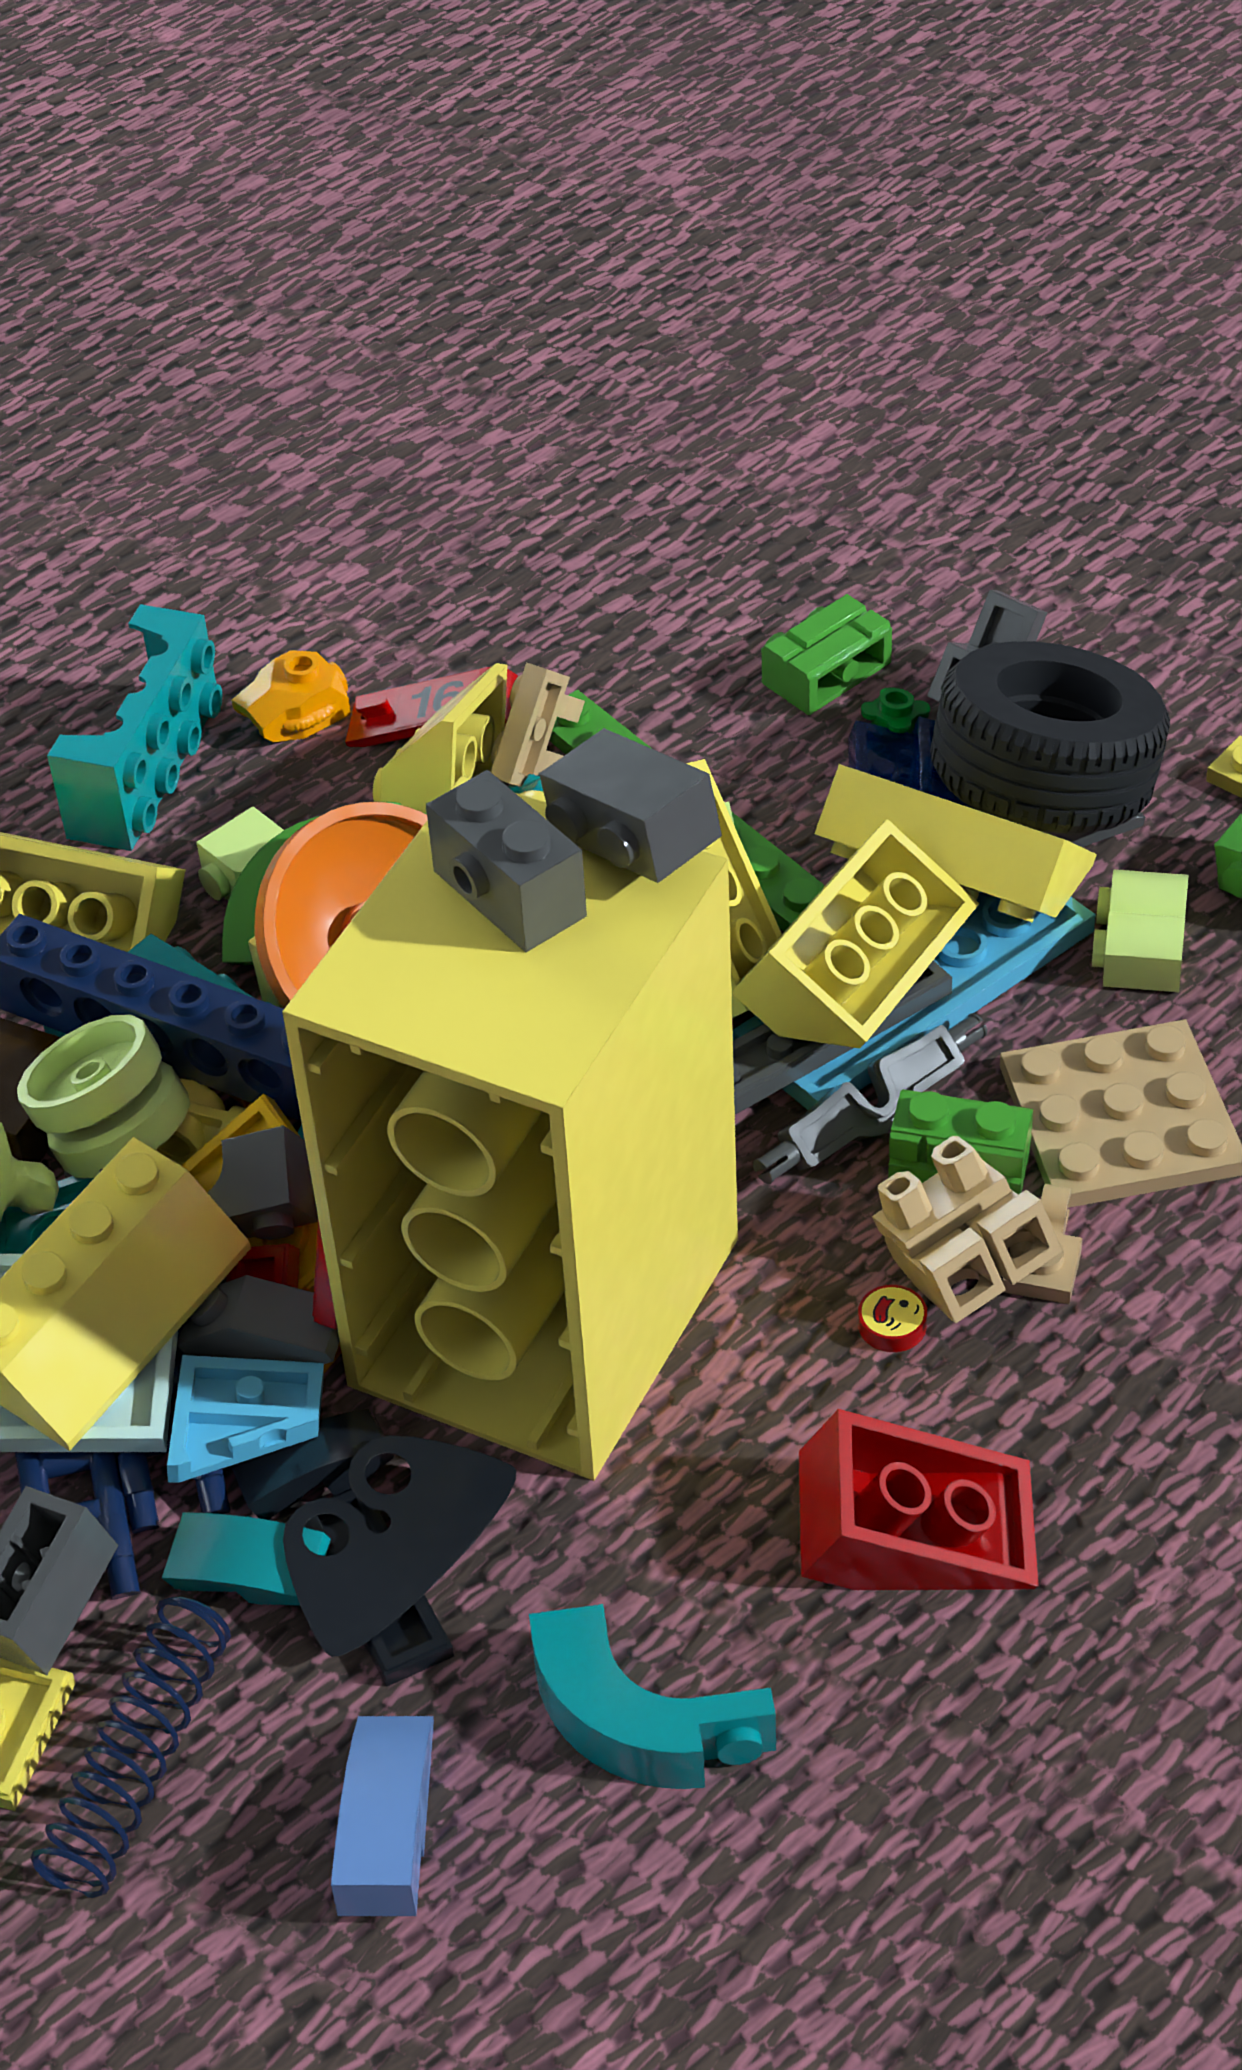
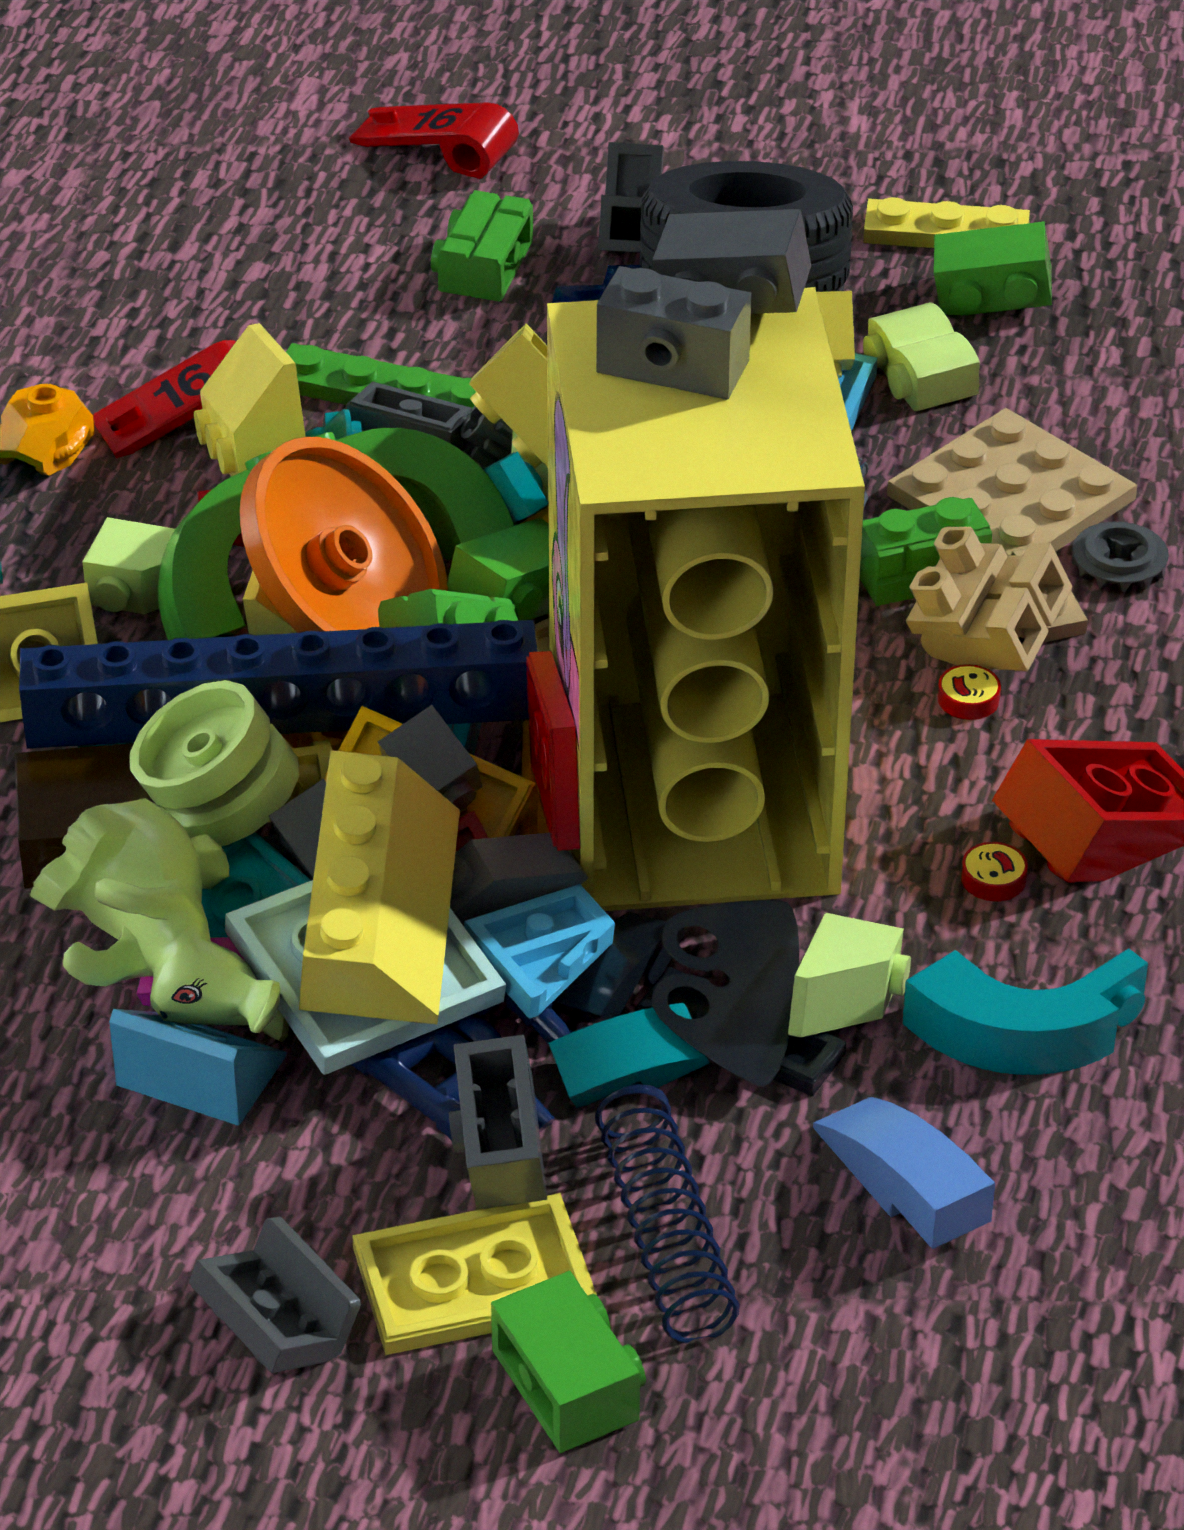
camera: 35 degrees left, 5 degrees down
(489, 1576) = (847, 975): none -> yellowish green slope
(536, 703) = (305, 347): tan plate -> none
(751, 1528) = (994, 871): none -> tile
(895, 710) = (577, 268): green plate -> none
(902, 528) = (469, 133): none -> red door
(1192, 1219) = (1123, 539): none -> dark grey gear

